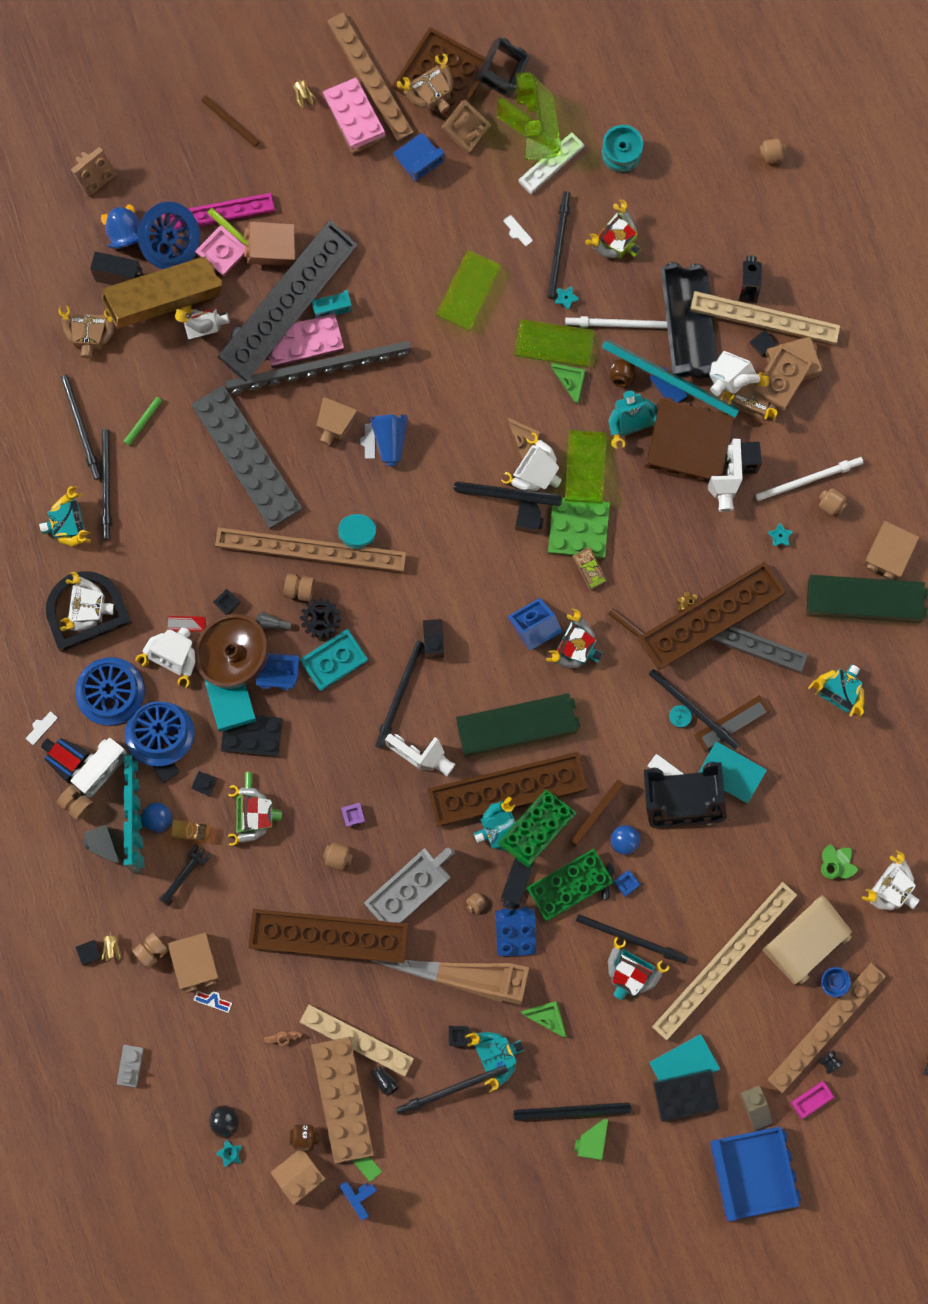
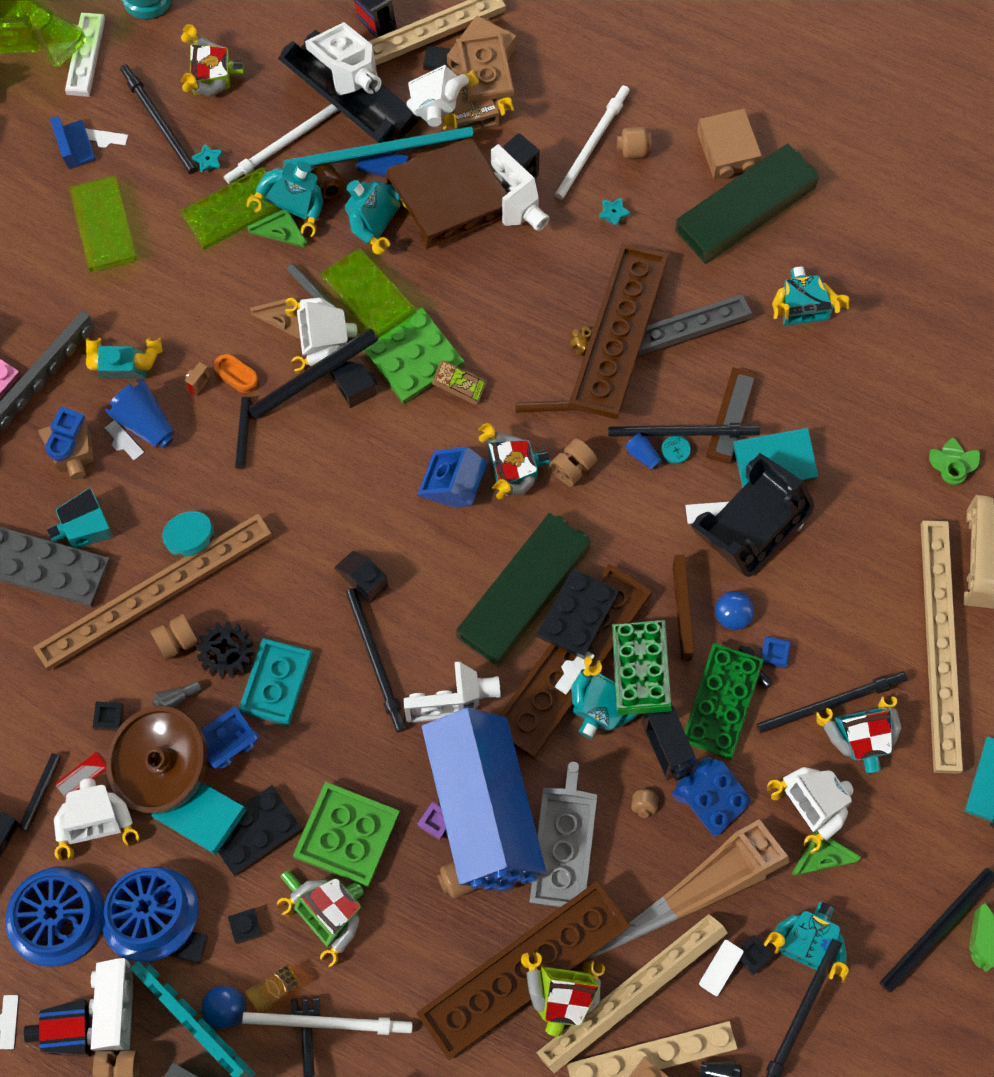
camera: 40 degrees left, 10 degrees down
(156, 614) = (39, 792): none -> black bar
(229, 899) = (382, 1025): none -> white bar
(299, 780) = (346, 834): none -> bright green plate
(304, 473) = (81, 521): none -> teal torso
(326, 418) = (60, 447): none -> blue tile
(336, 967) = (563, 994): none -> torso
(342, 408) = (67, 422): none -> blue plate
(375, 998) = (632, 992): none -> tan plate
(383, 827) = (483, 800): none -> container
(404, 392) = (121, 361): none -> torso
(435, 1027) = (721, 967): none -> white sticker
(439, 494) = (243, 433): none -> black bar
(440, 438) = (197, 378): none -> medium nougat plate
(467, 453) = (236, 373): none -> orange tile
(494, 220) = (73, 142): none -> blue panel
(500, 795) = (571, 670): none -> white sticker
(533, 766) = (578, 613): none -> black plate
(556, 434) = (305, 282): none -> dark grey bar
(570, 985) = (818, 799): none -> white torso
(594, 364) = (292, 190): none -> teal torso
(618, 674) = (576, 458): none -> medium nougat wheel
(659, 701) = (643, 451): none -> blue cone
(702, 301) = (348, 57): none -> white plate

